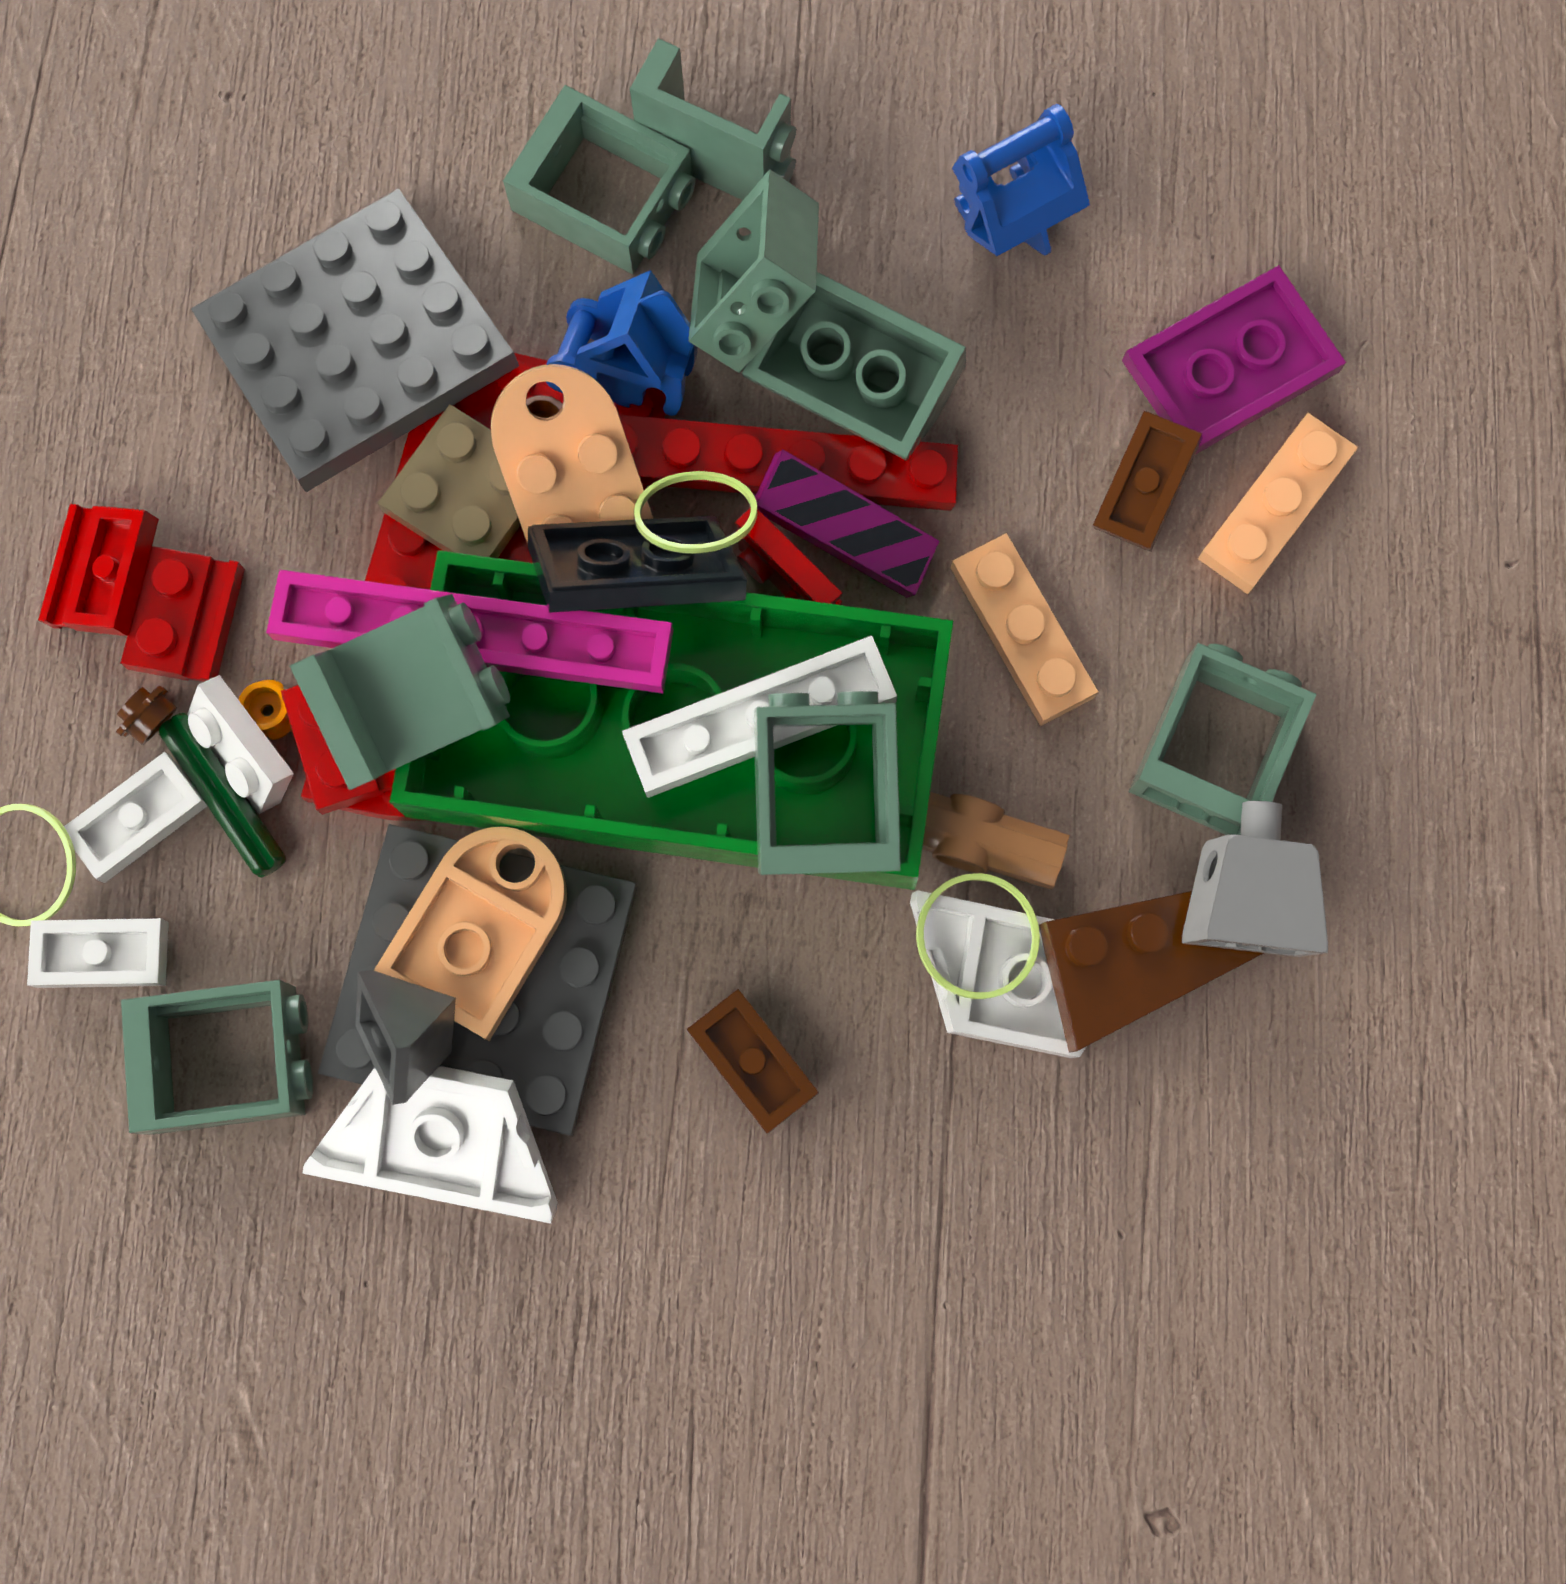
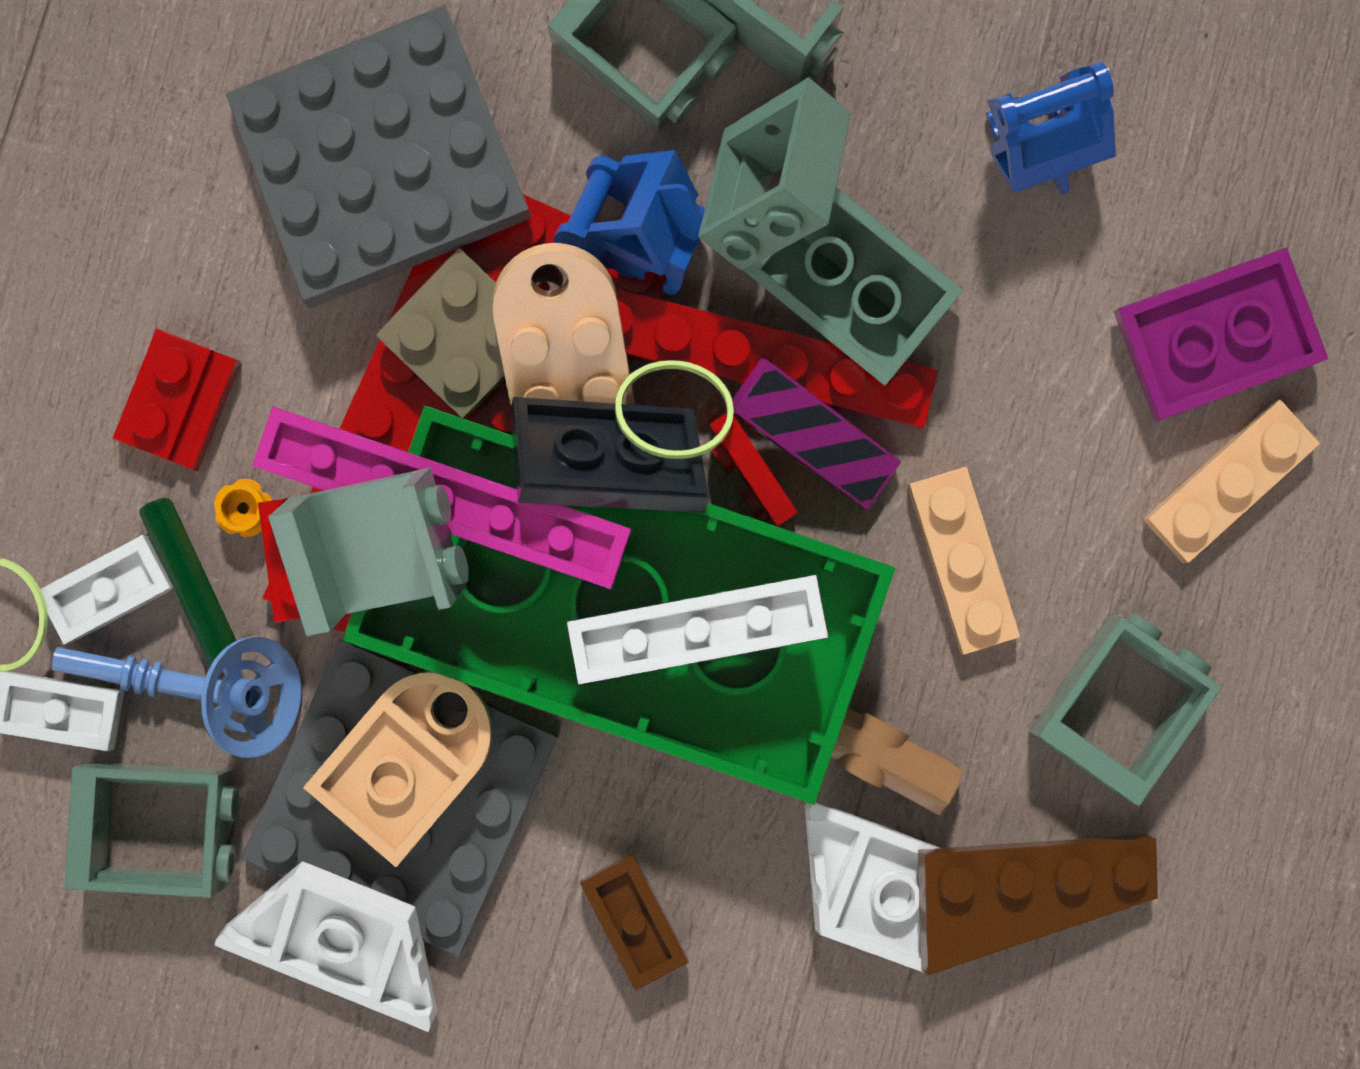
camera: 10 degrees right, 10 degrees up
(99, 569) = (103, 342): red plate -> none
(145, 714) = (129, 493): reddish brown plate -> none
(239, 744) = (220, 560): white plate -> none
(271, 907) = (231, 693): none -> medium blue dish
(403, 1030) = (323, 849): dark grey slope -> none
(851, 709) = (738, 779): sand green window -> none
(1032, 920) = (910, 869): yellowish green piece -> none
(1147, 481) = (1111, 443): reddish brown plate -> none
(1258, 890) = (1123, 865): light grey torso -> none

